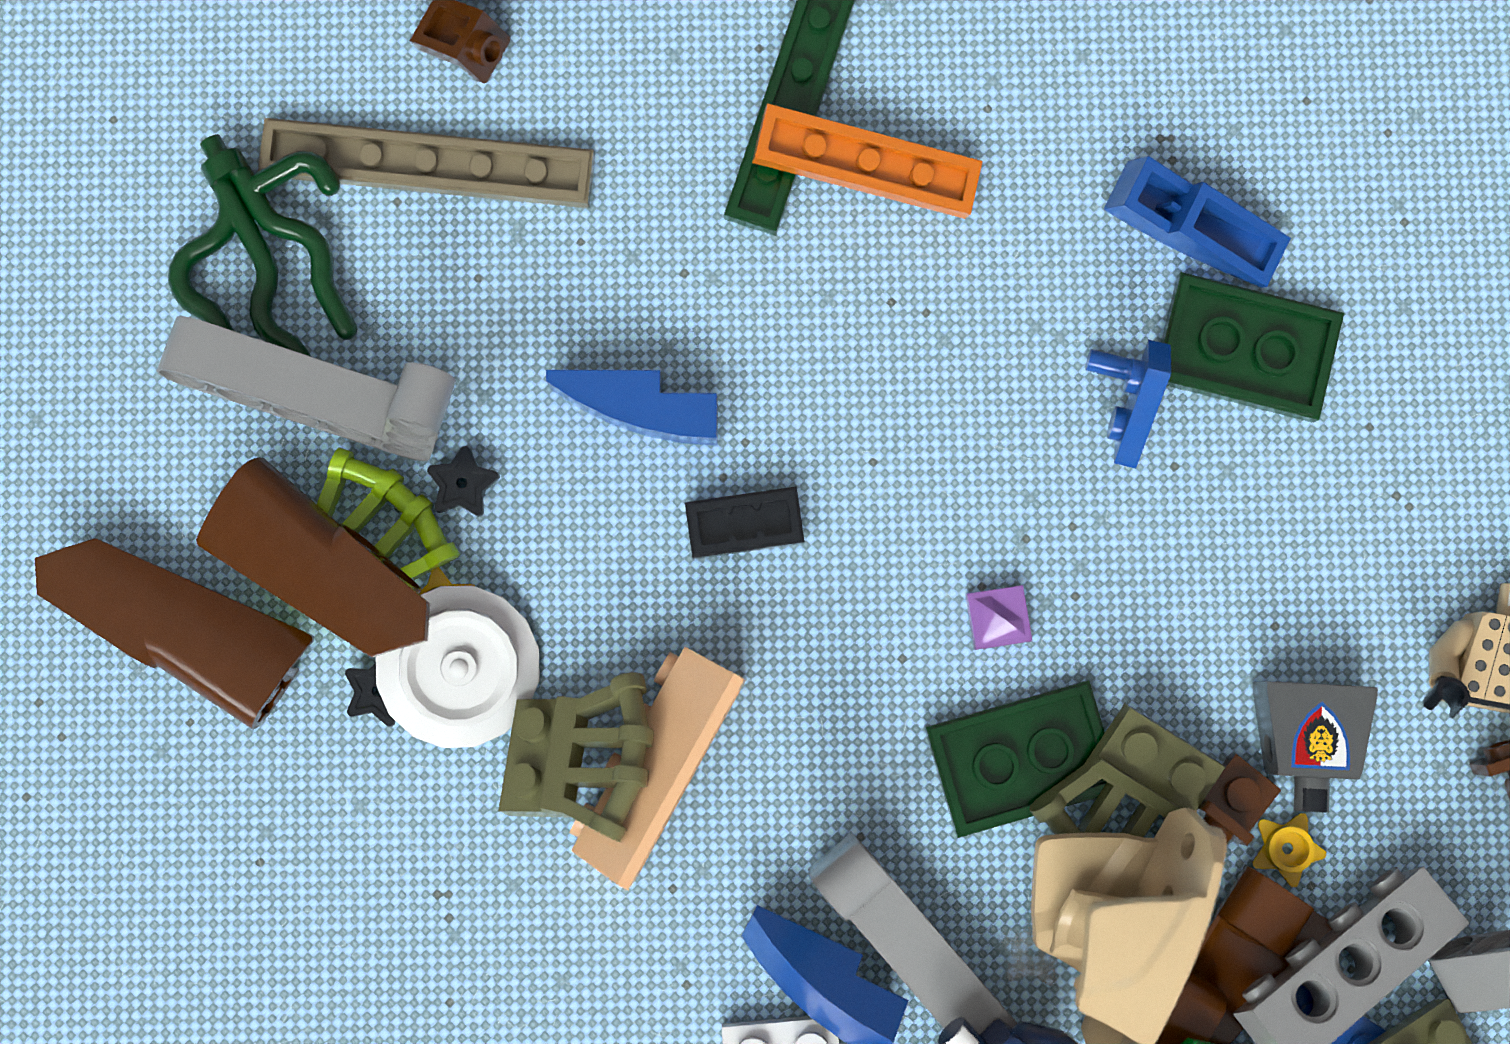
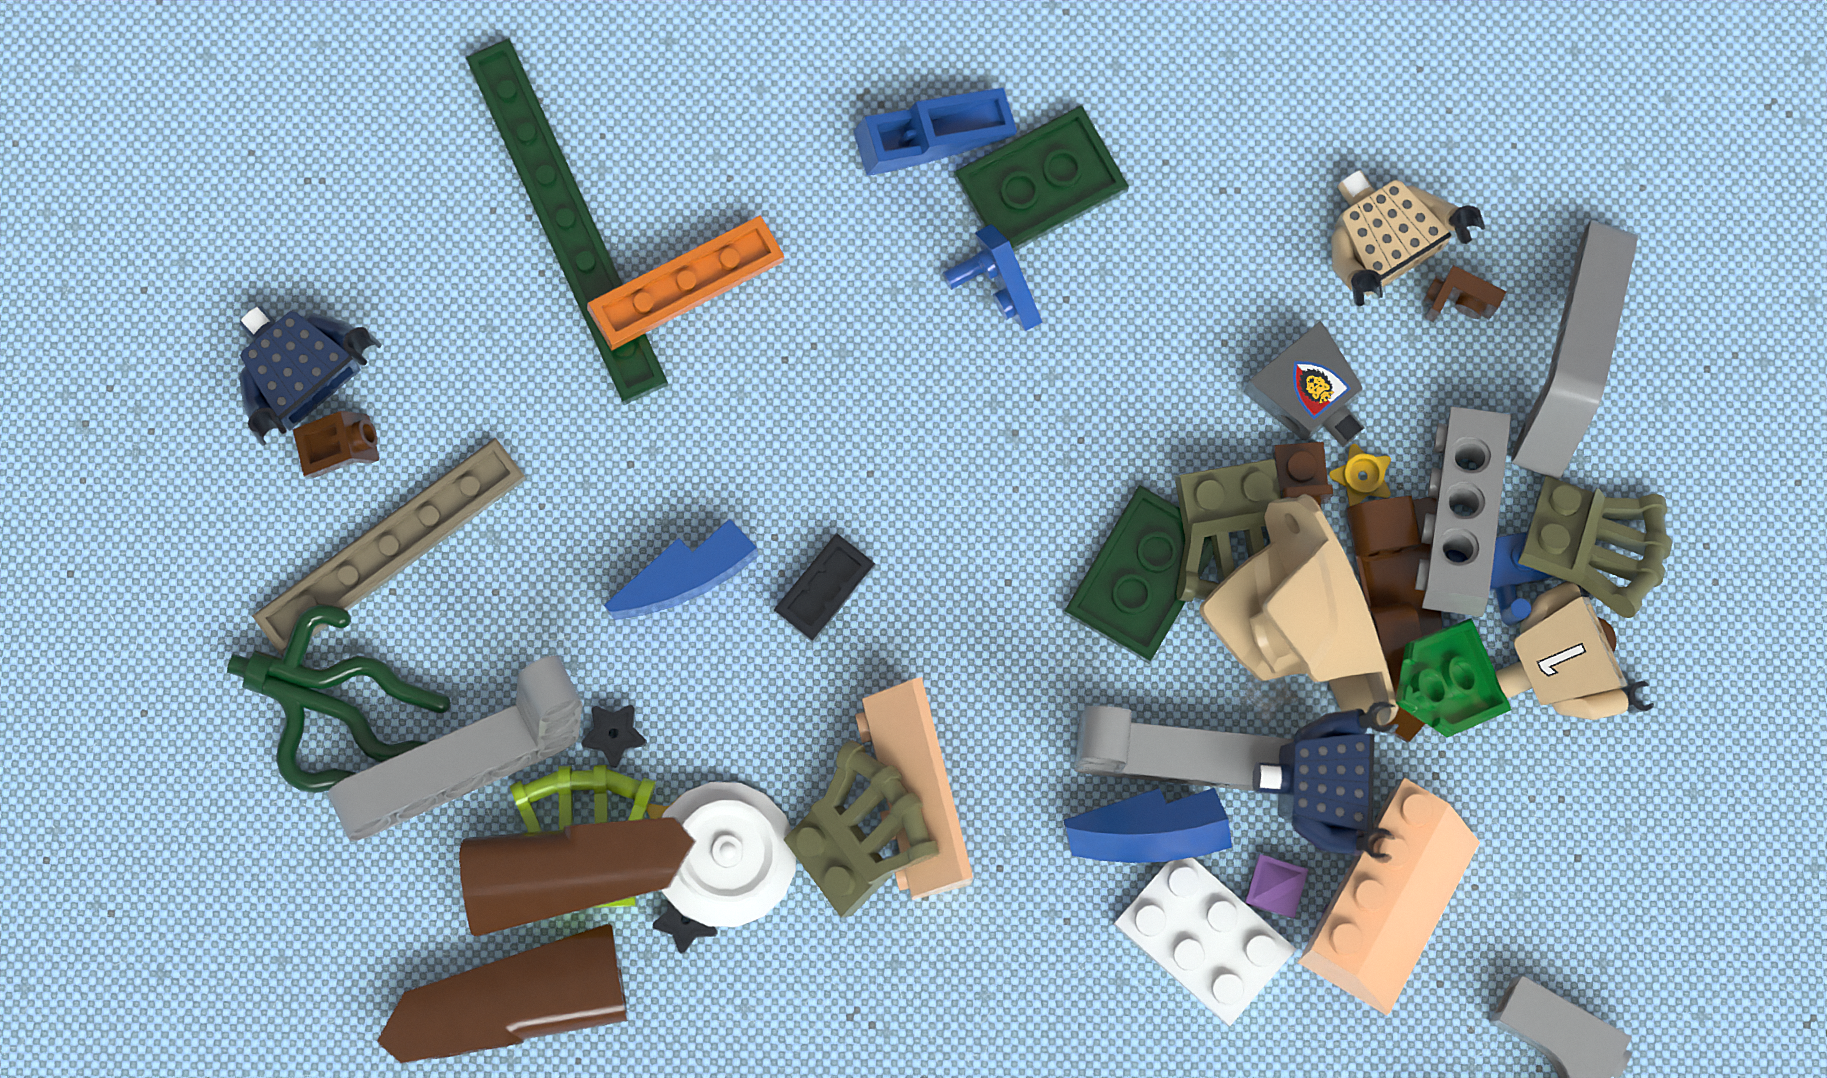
camera: 50 degrees left, 5 degrees down
(998, 617) = (1044, 498): medium lavender tile -> none

